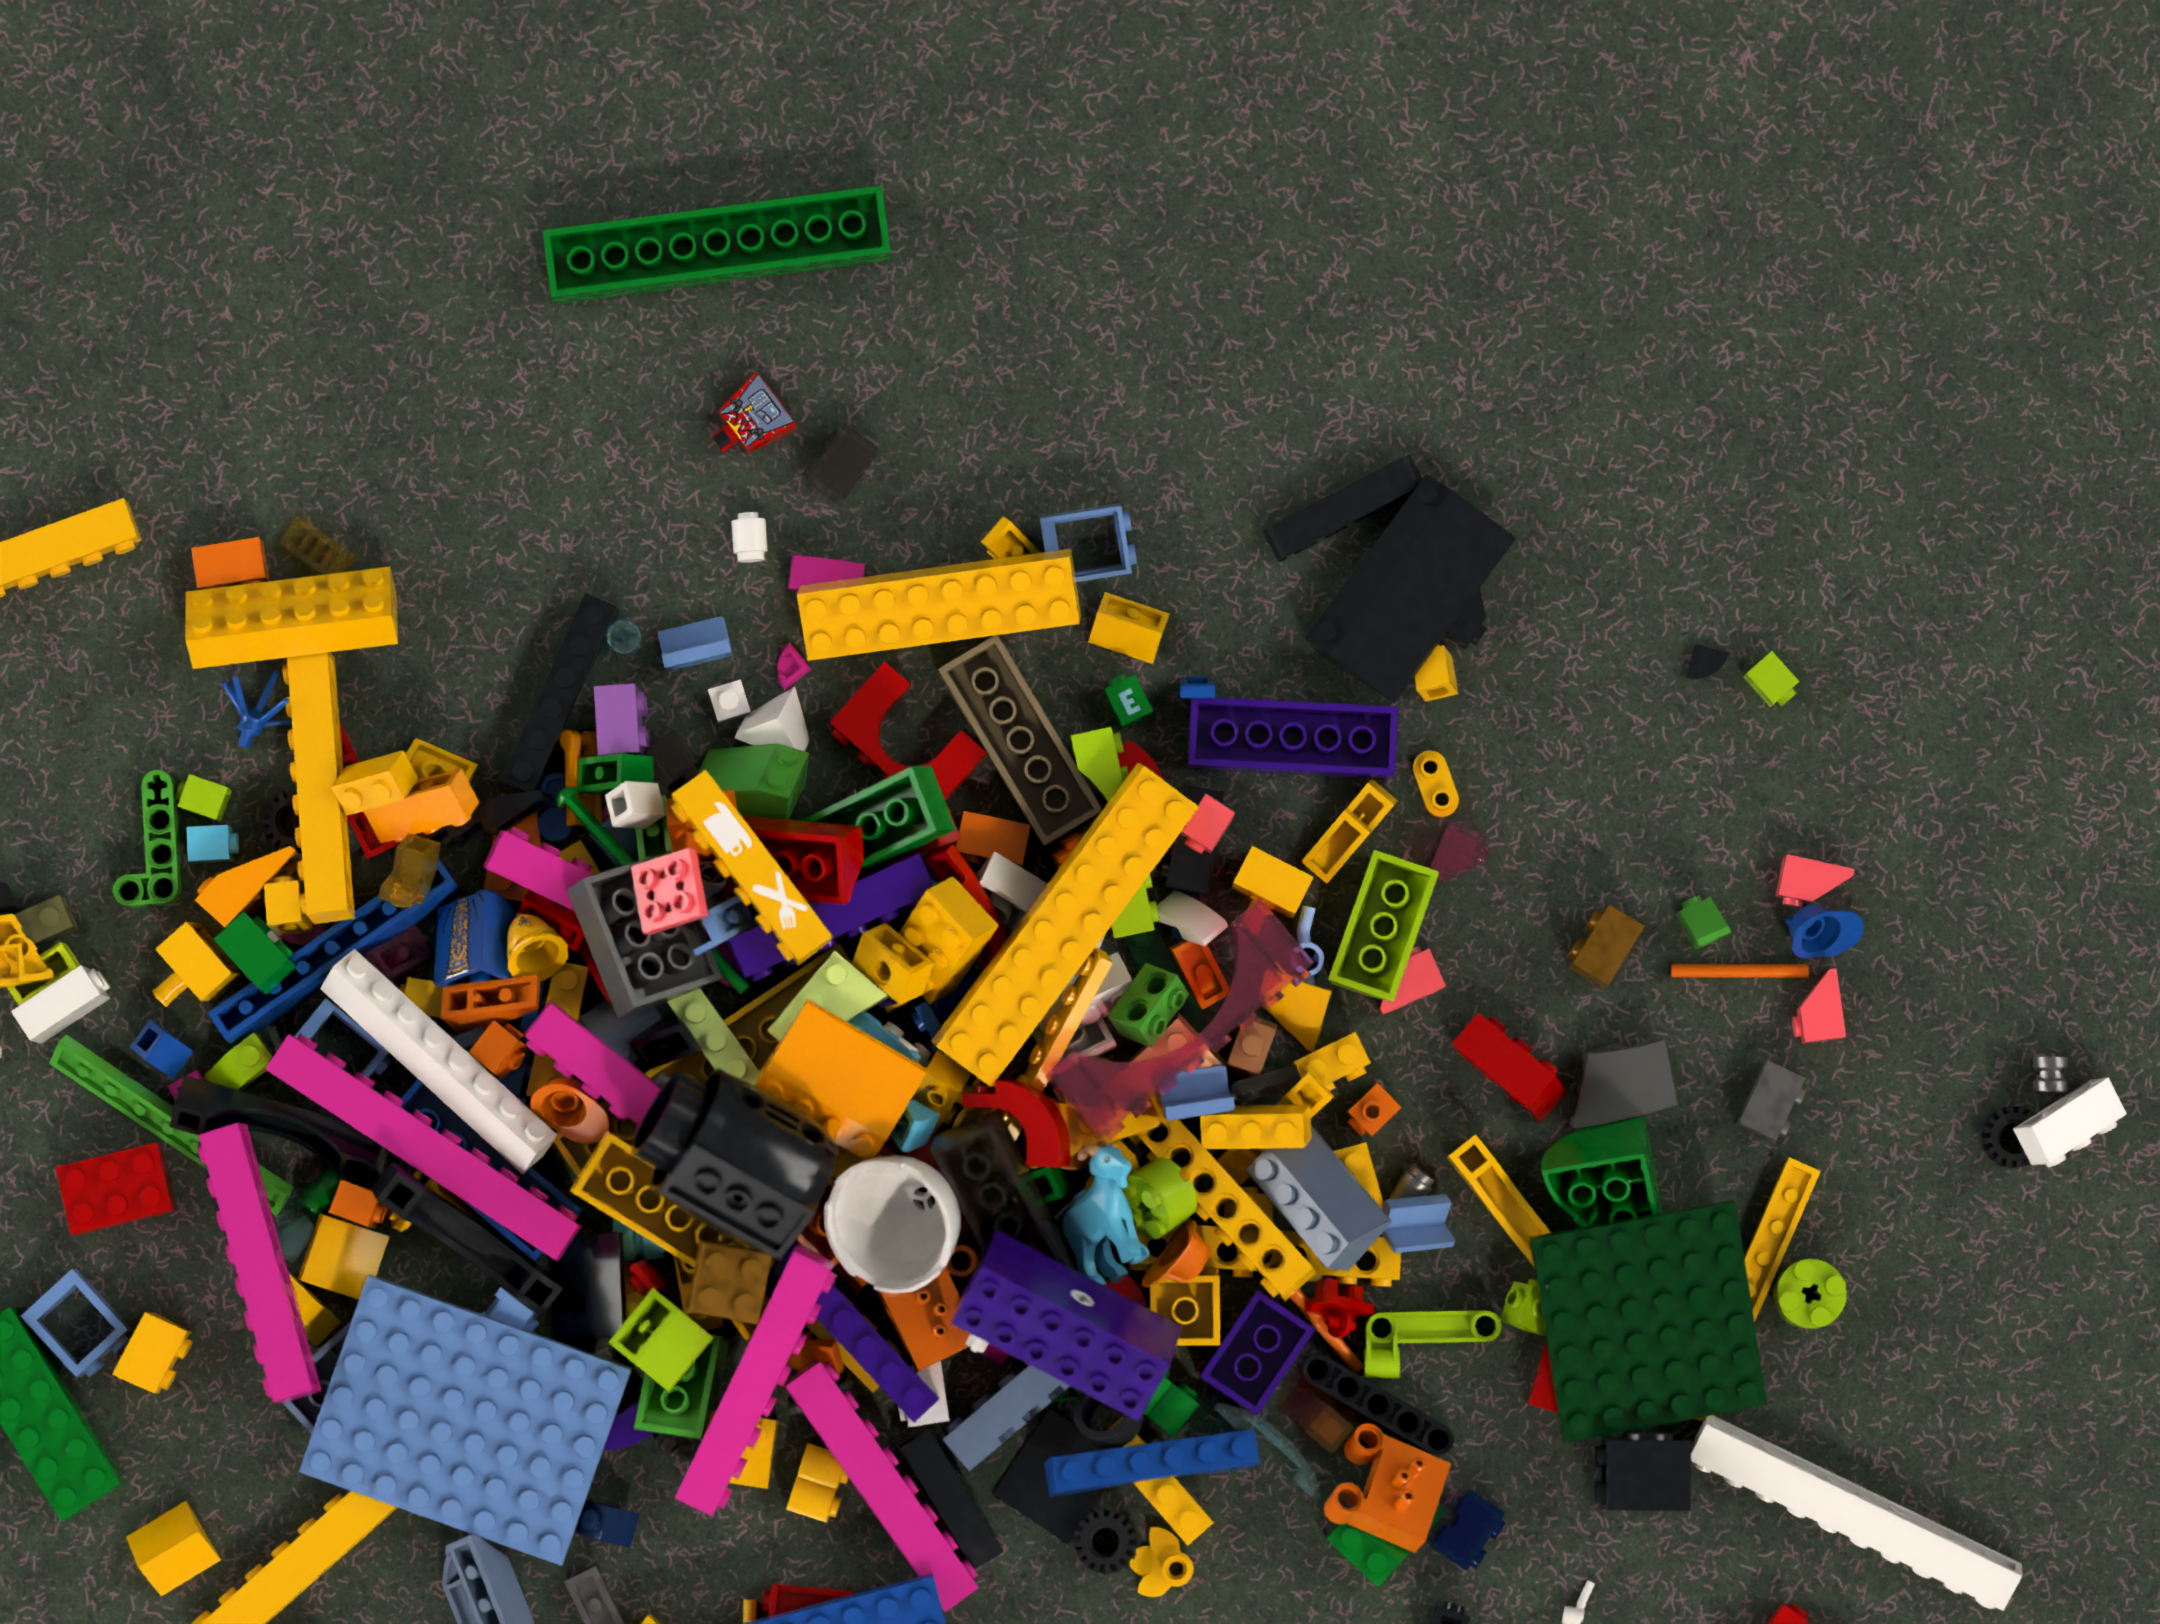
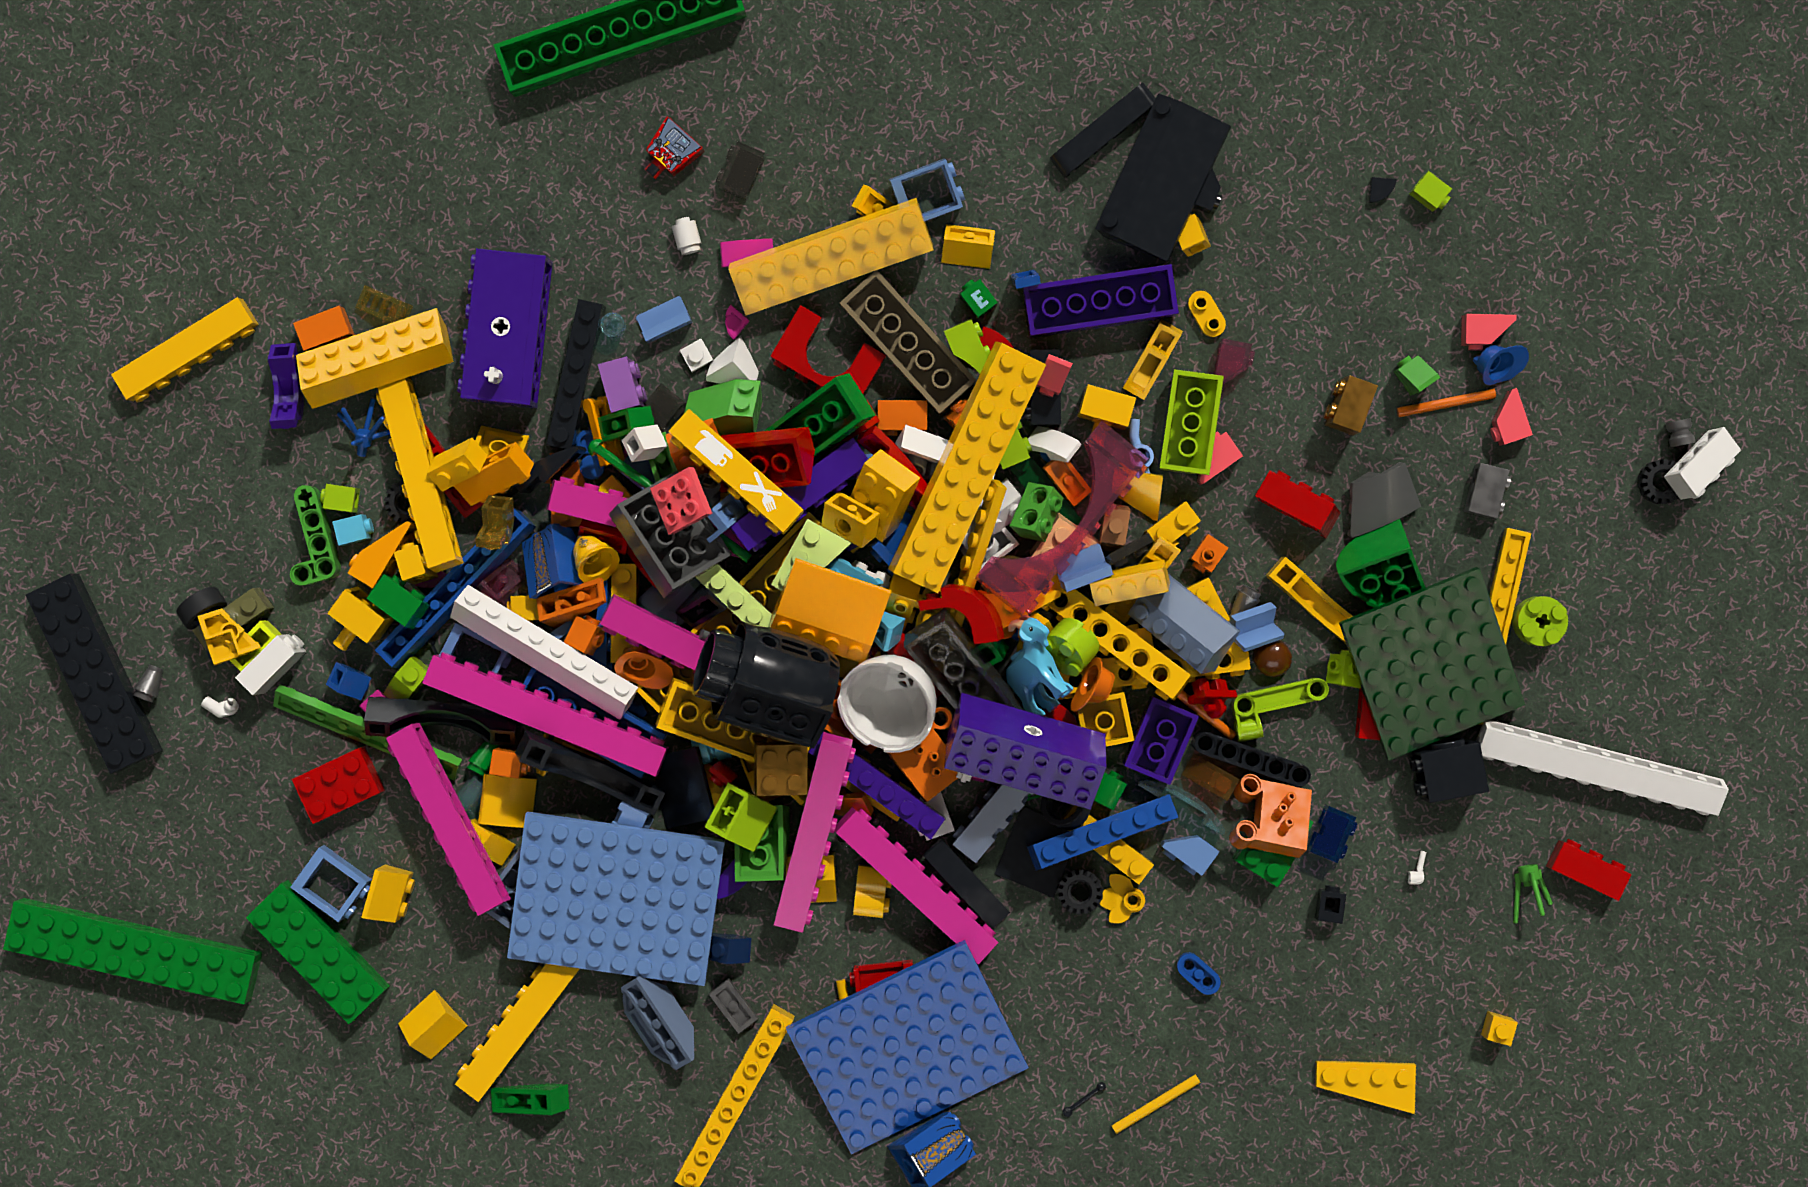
camera: 10 degrees left, 5 degrees up
(163, 631) = (288, 396): none -> dark purple arch
(467, 662) = (513, 293): none -> dark purple piece
(1271, 1516) = (1191, 850): none -> medium blue slope
(1434, 1272) = (1273, 658): none -> reddish brown hair

